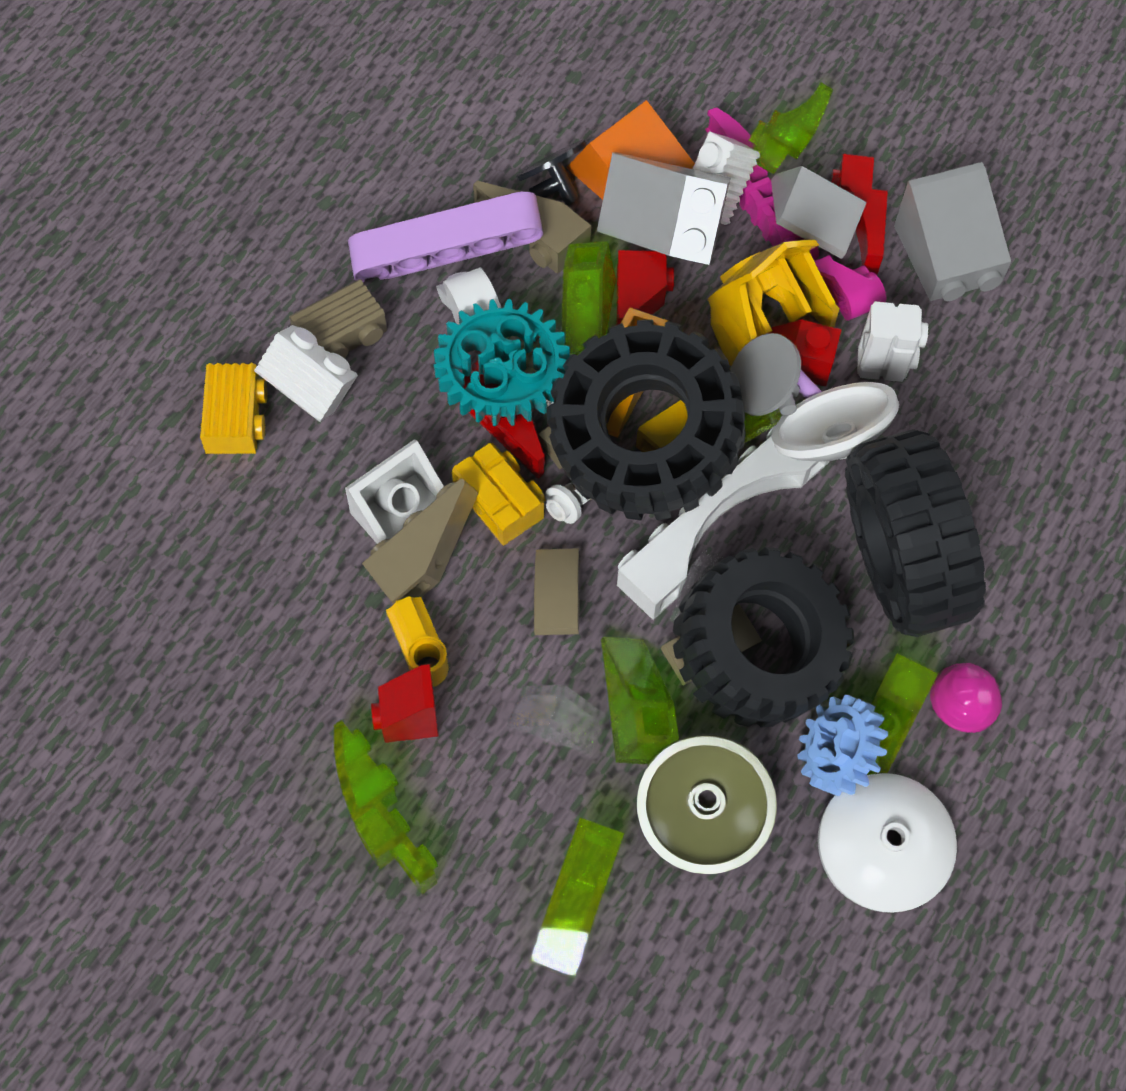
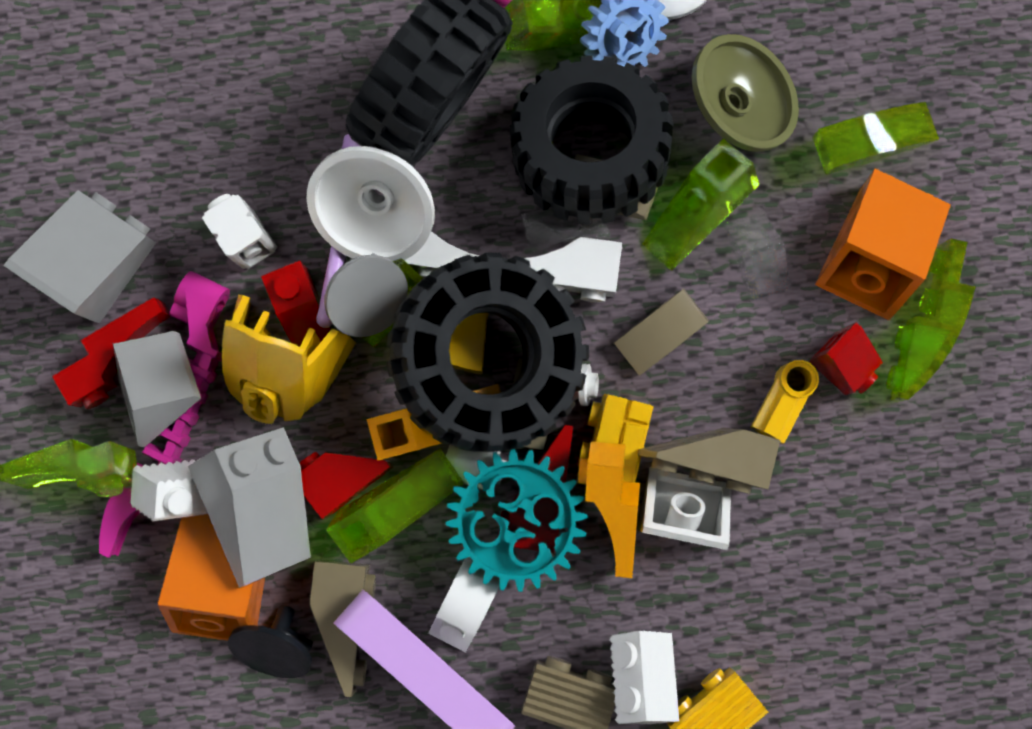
camera: 125 degrees left, 20 degrees up
(455, 440) = (614, 499): none -> light orange slope
(481, 825) = (884, 245): none -> orange slope

